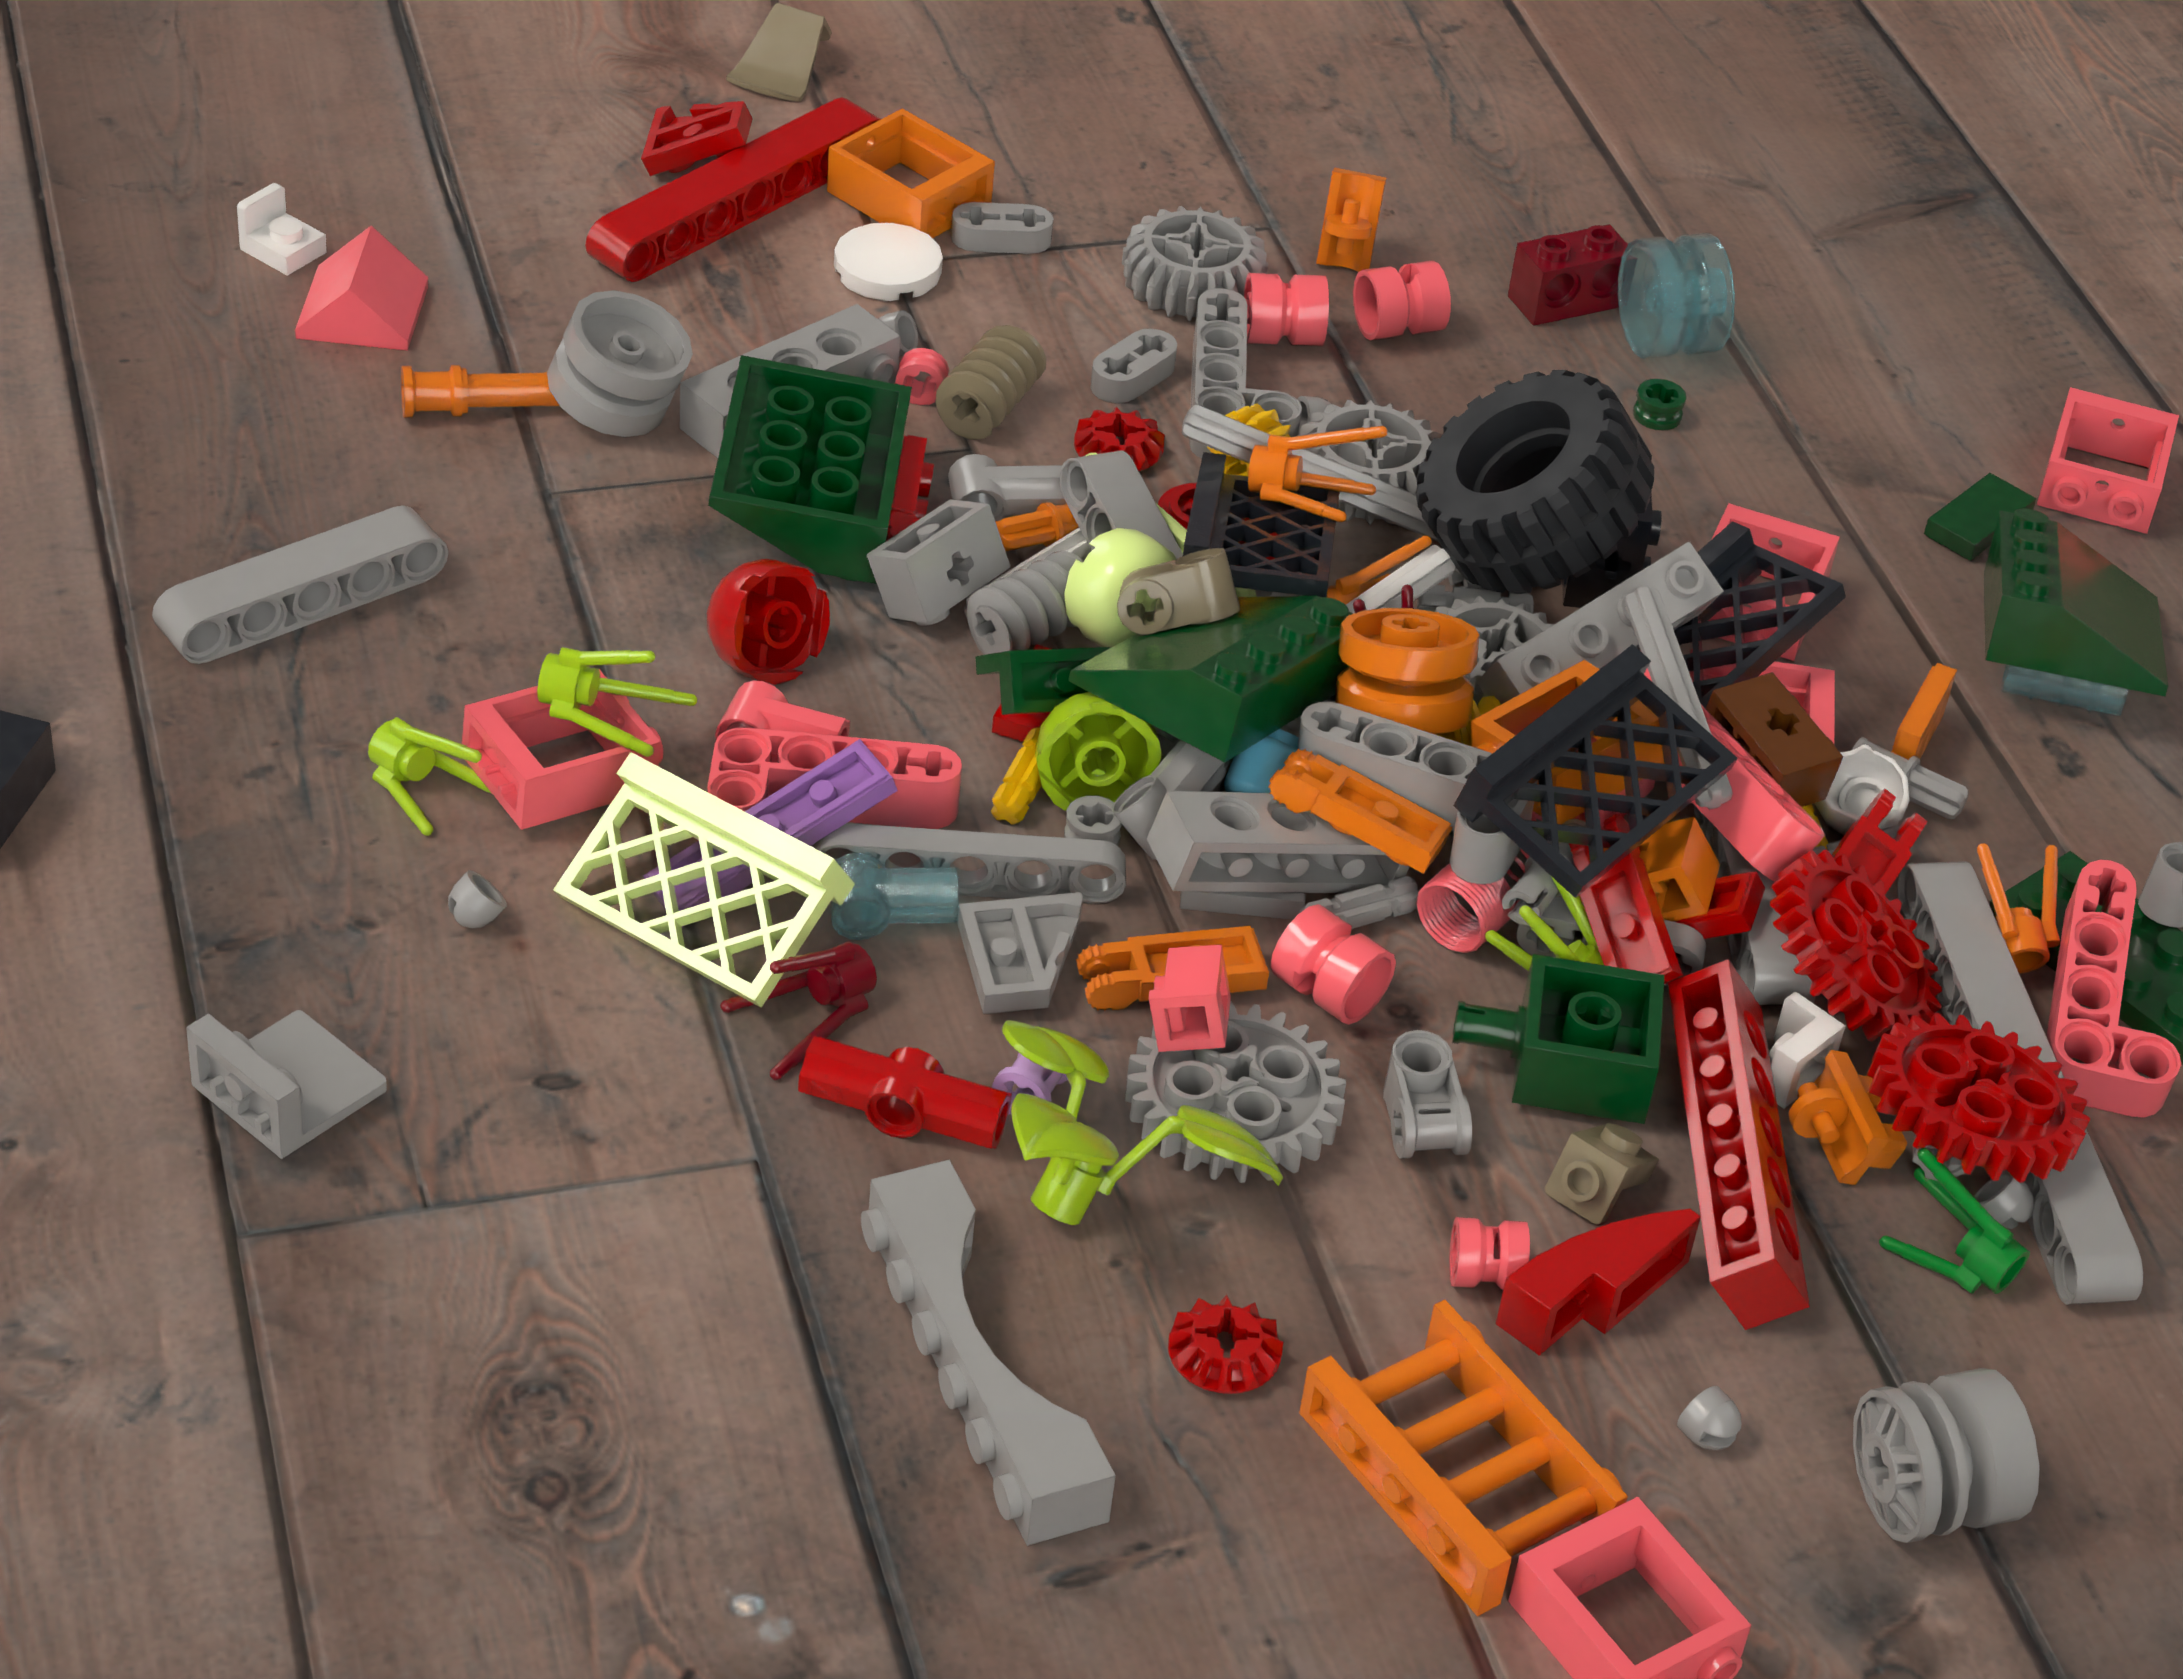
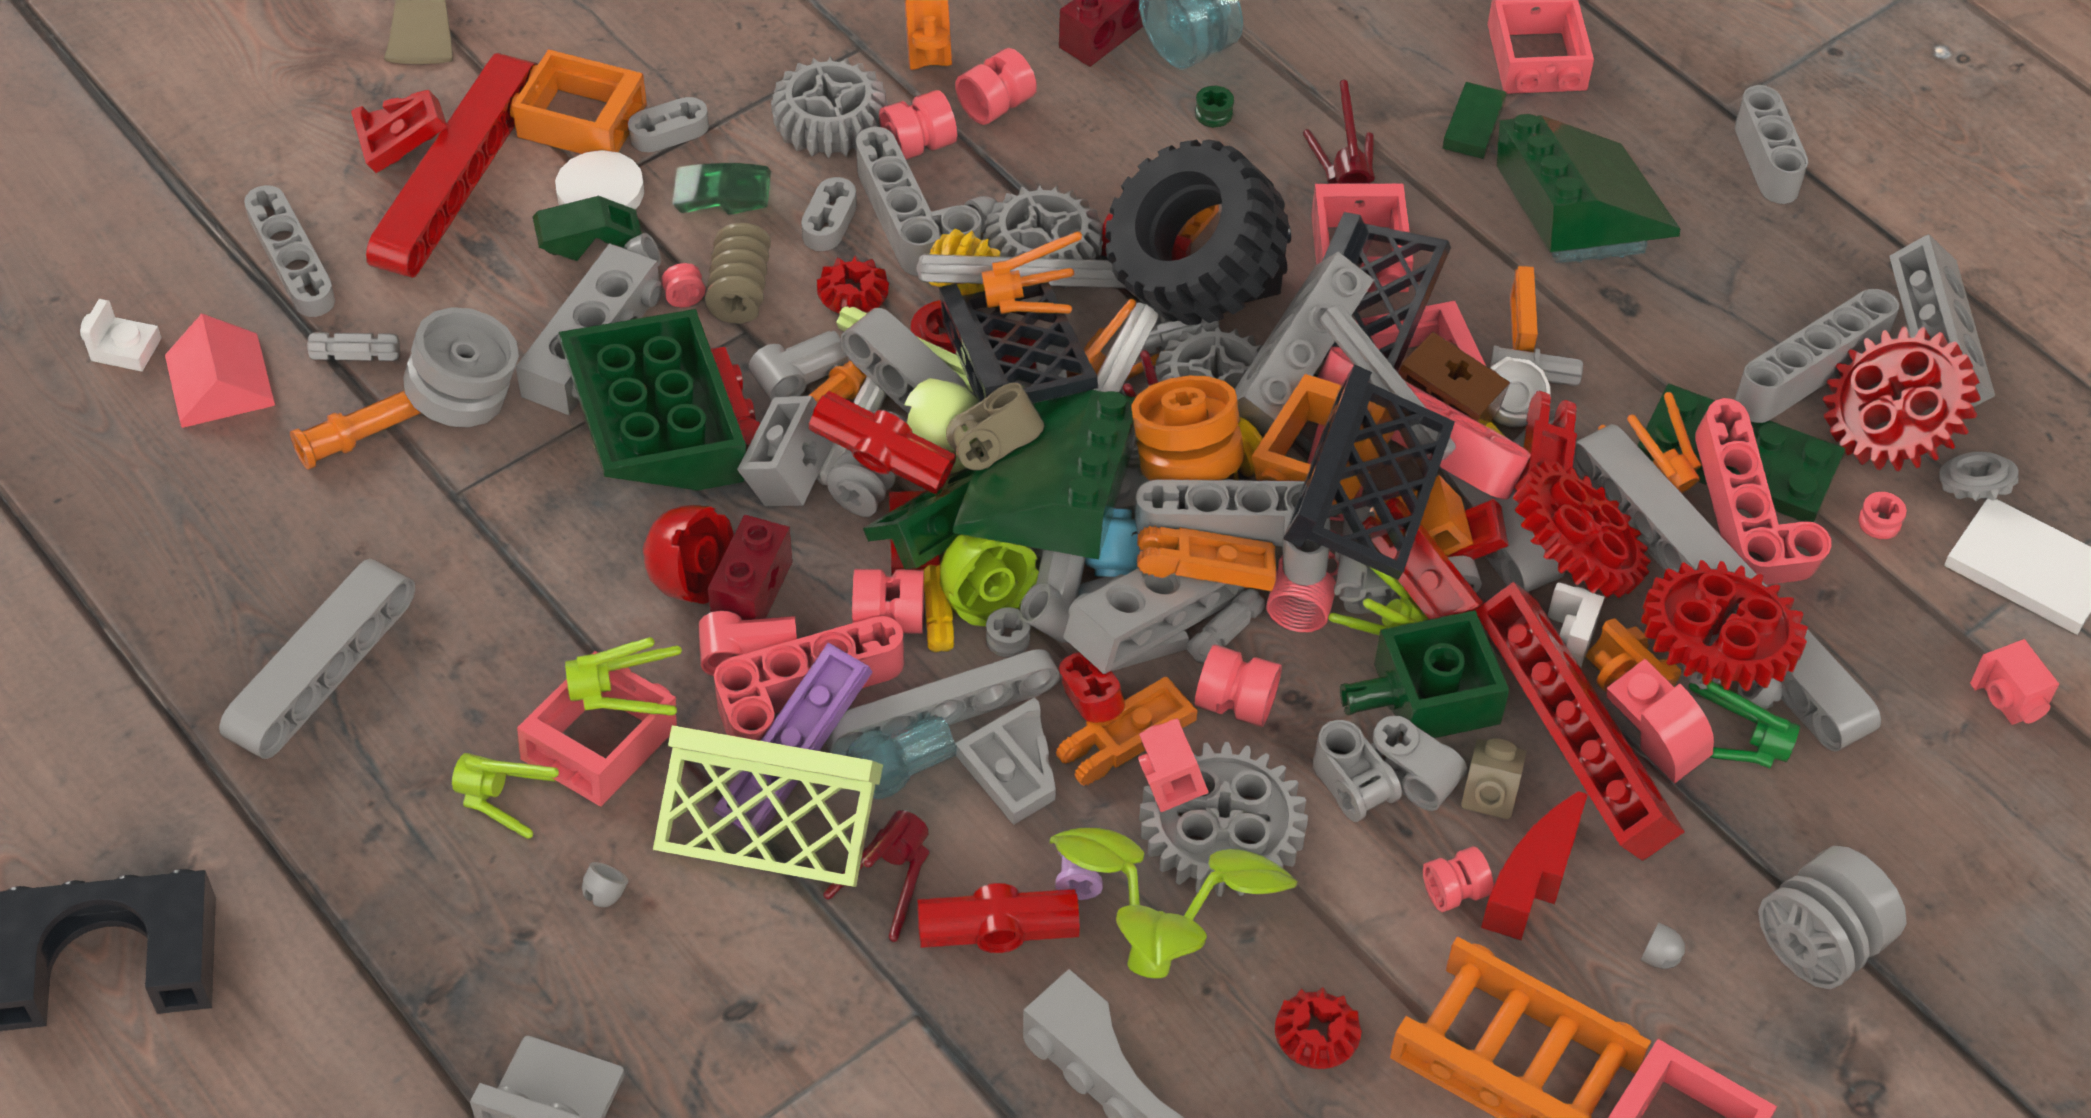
camera: 20 degrees left, 10 degrees up
(510, 213) = (285, 251): none -> light grey beam
(518, 319) = (353, 346): none -> light grey axle
(827, 282) = (574, 226): none -> dark green slope
(829, 658) = (752, 569): none -> dark red brick
(981, 740) = (903, 590): none -> coral wheel
(1031, 299) = (728, 185): none -> clear green slope
(1041, 571) = (882, 442): none -> red piece
(1152, 907) = (1085, 690): none -> red beam
(1509, 1116) = (1422, 764): none -> light grey piece
(1794, 501) = (1350, 164): none -> dark red plant
(1851, 1181) = (1670, 720): none -> coral brick

